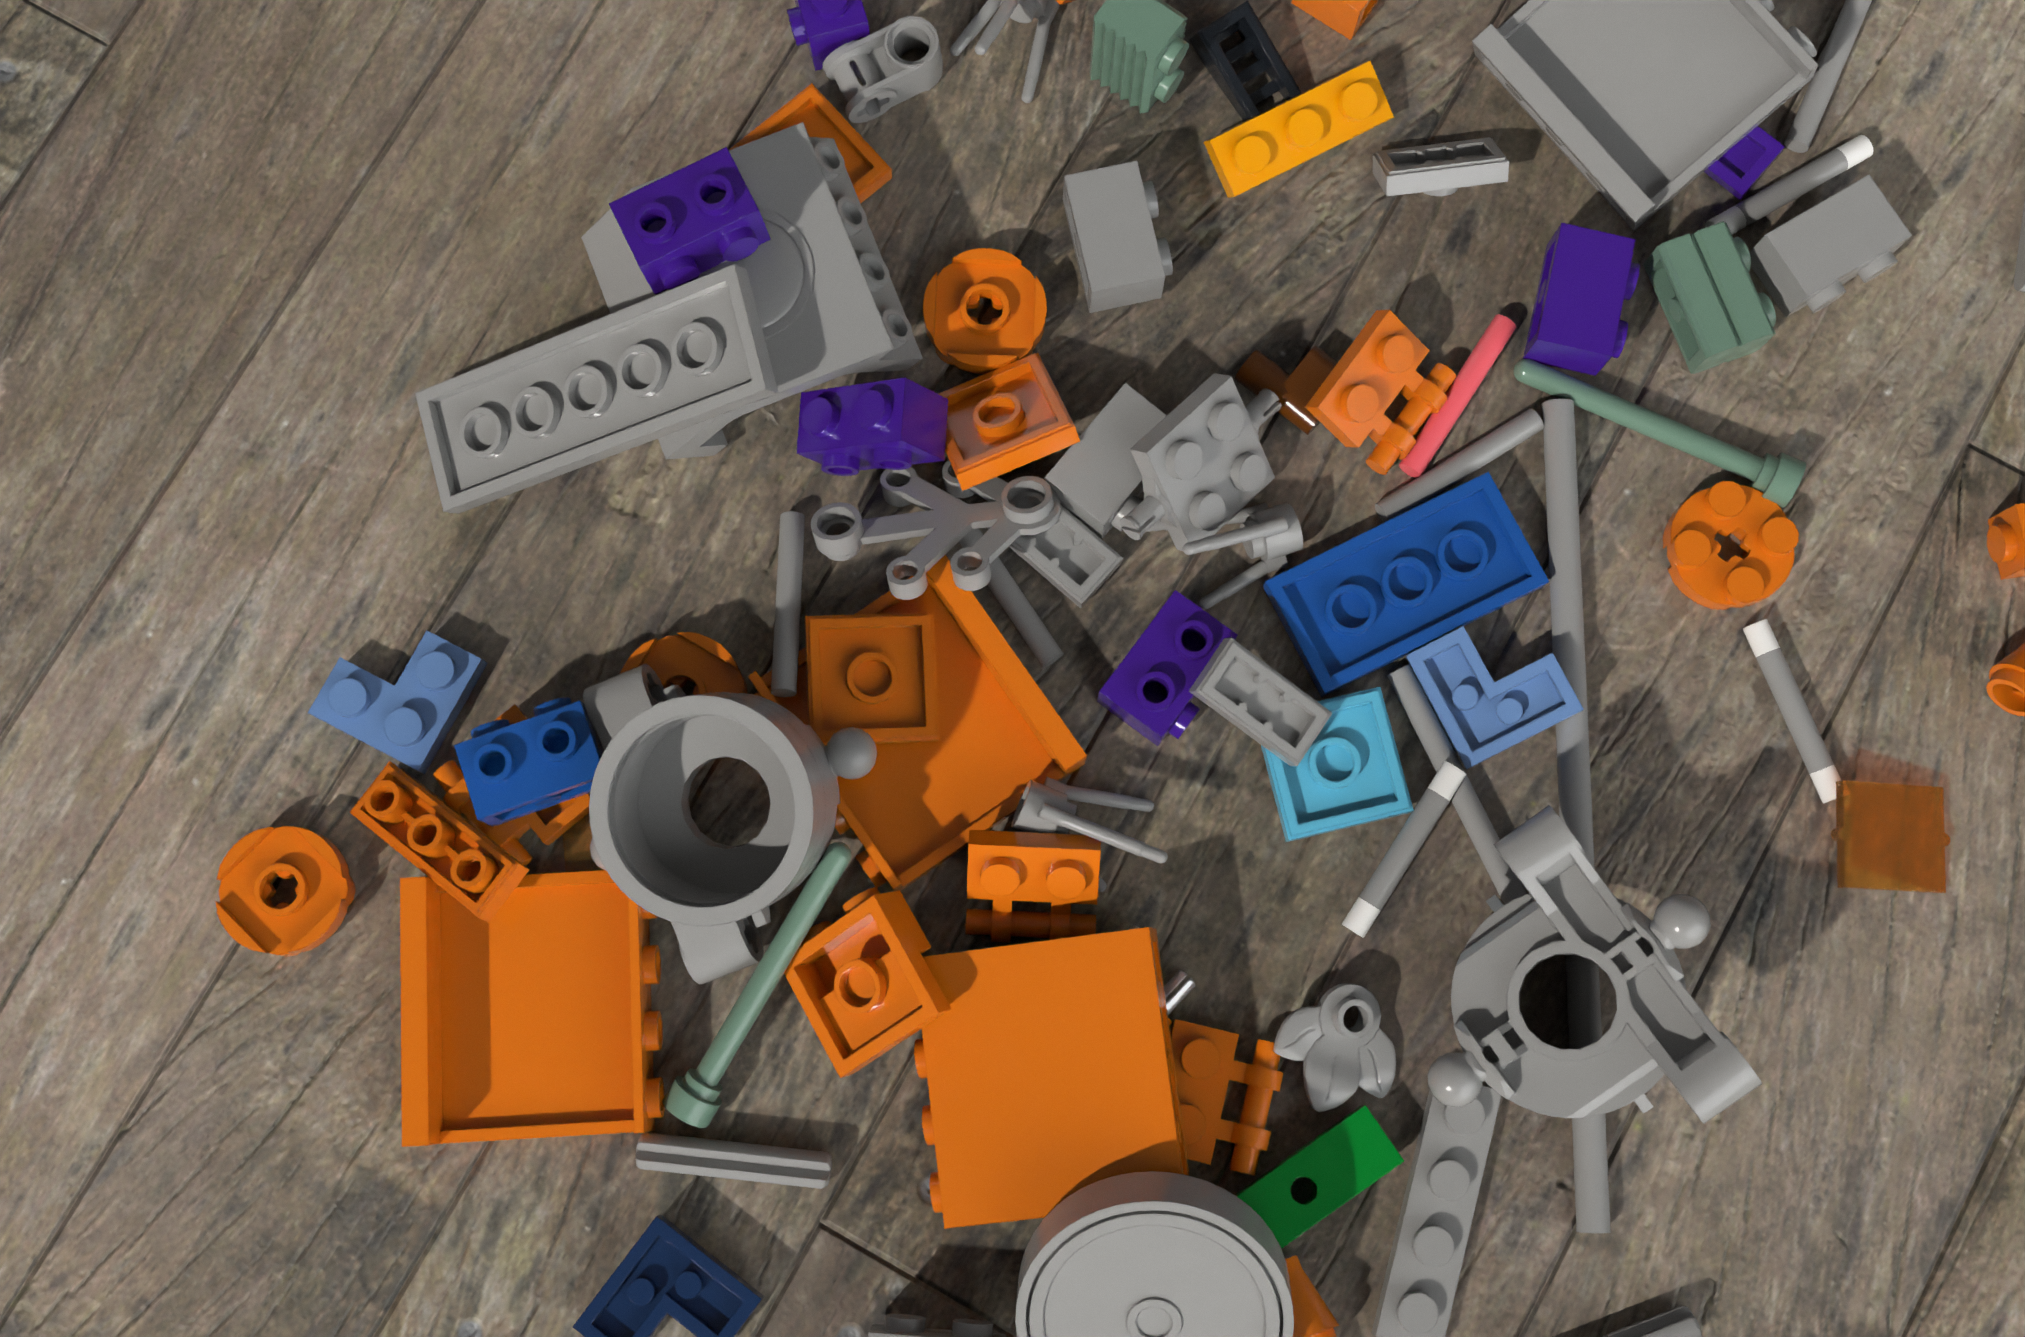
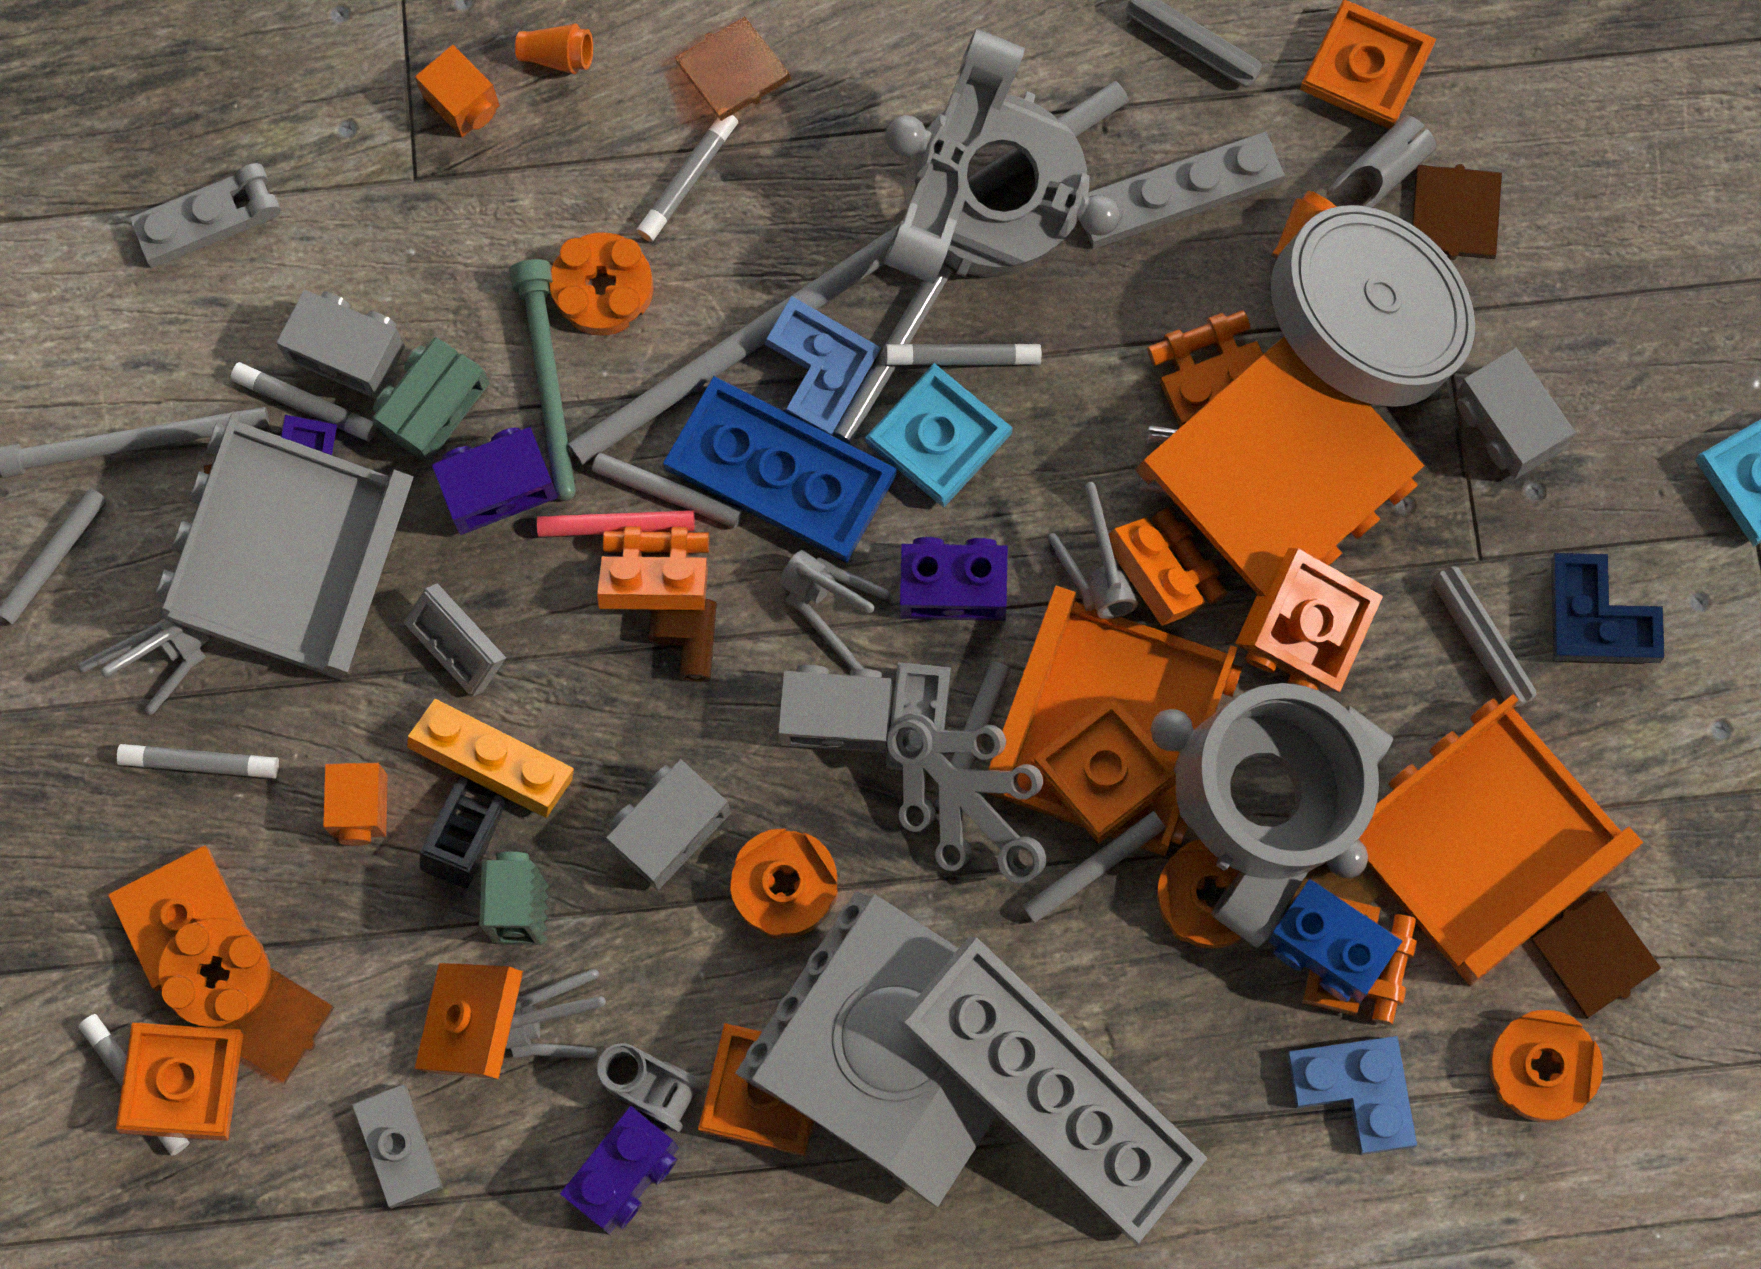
camera: 120 degrees left, 5 degrees down
(347, 1028) = (1595, 954): none -> reddish brown piece
(458, 858) = (1433, 946): orange tile -> none
(690, 221) = (890, 1089): dark purple brick -> none
(696, 1095) = (1463, 688): sand green piece -> none
(872, 426) = (931, 883): dark purple brick -> none
(1005, 421) = (862, 807): orange plate -> none
(1202, 462) = (798, 645): light grey plate -> none
(1260, 702) = (937, 498): light grey plate -> none
(1337, 1164) = (1199, 264): green tile -> none
(1338, 1057) = (1126, 312): light grey plate -> none

